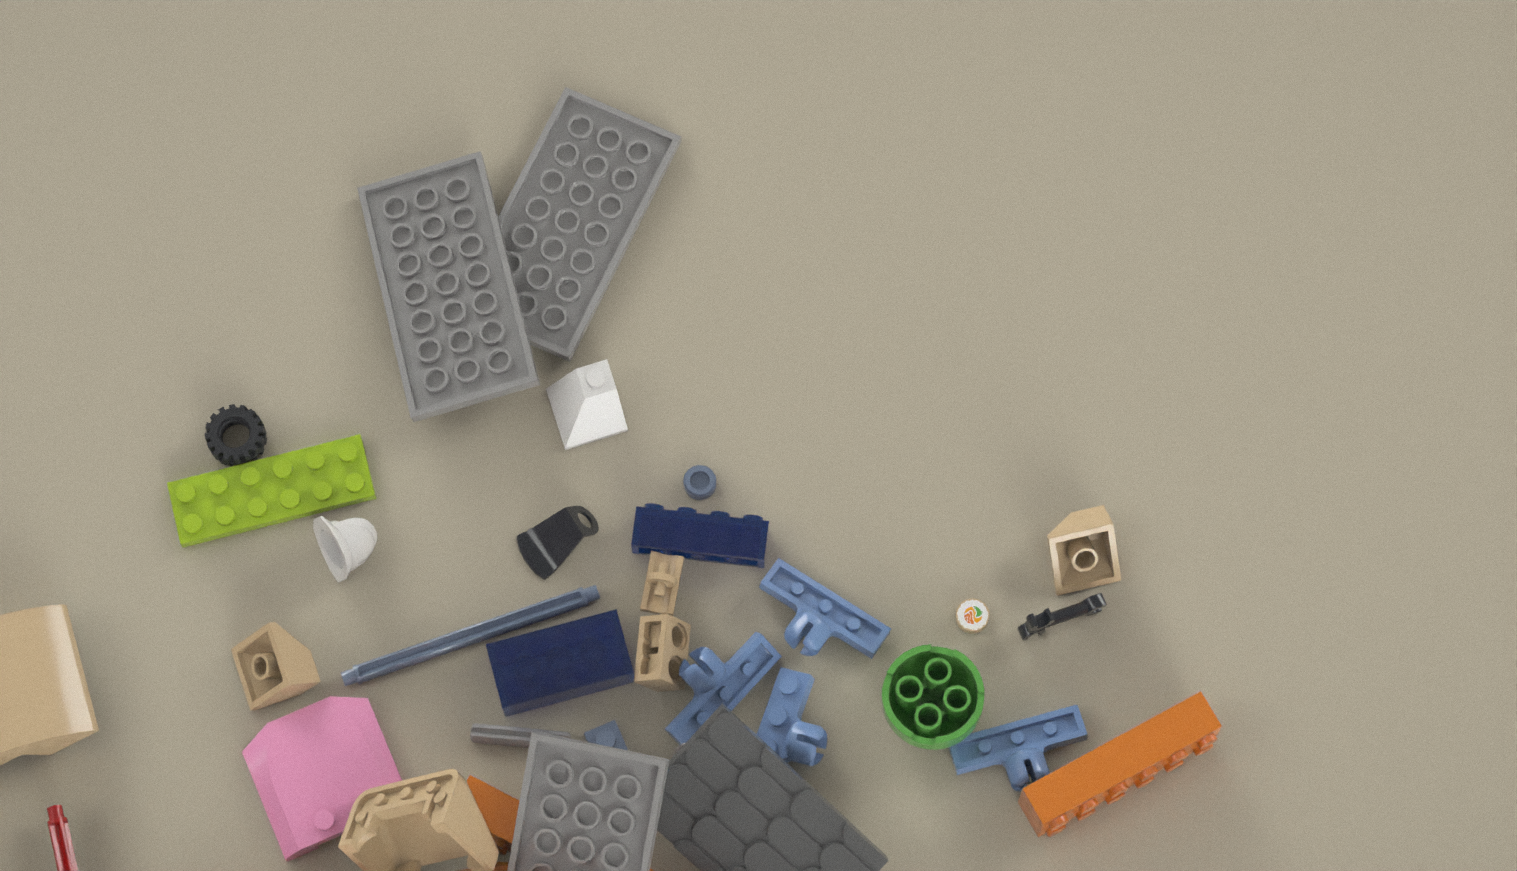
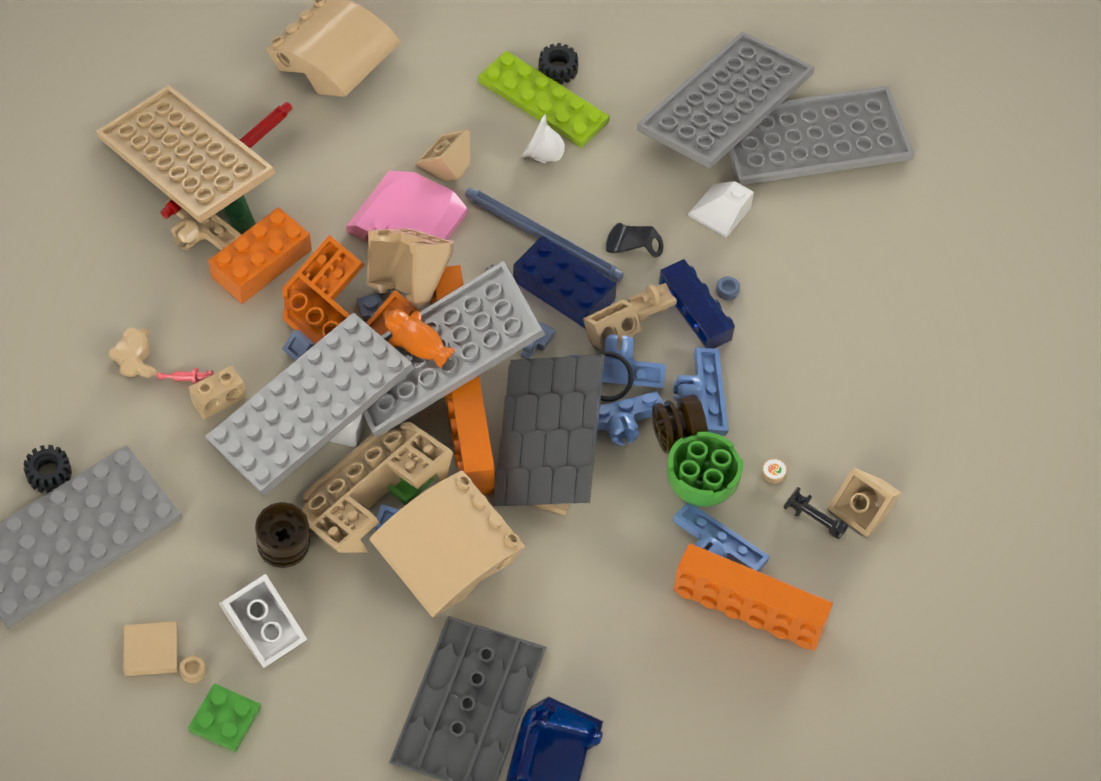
camera: 50 degrees right, 15 degrees down
(730, 679) = (630, 376): none -> black tyre
(849, 682) = (678, 422): none -> dark brown wheel

